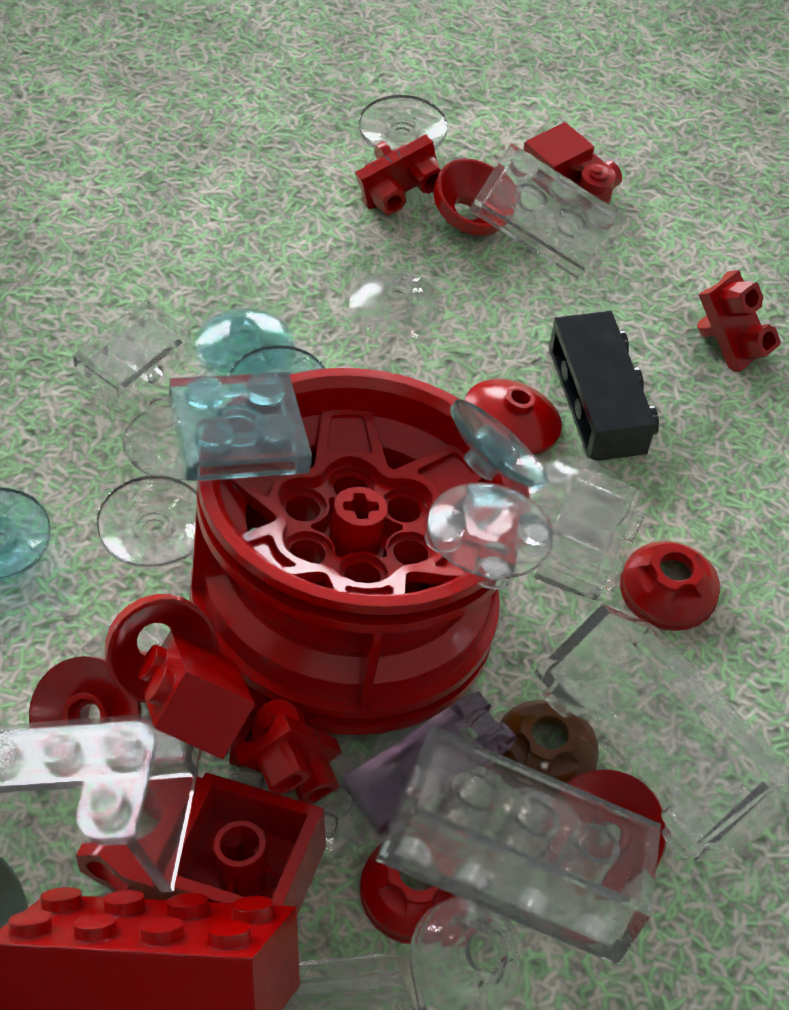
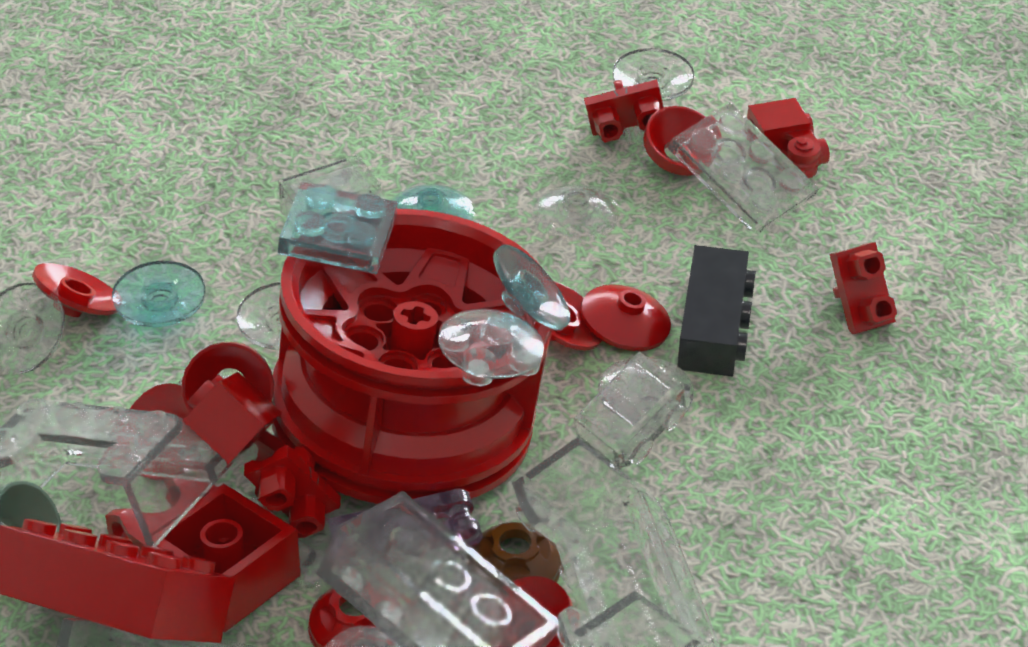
camera: 25 degrees right, 10 degrees down
(666, 601) = (688, 487): red piece -> none

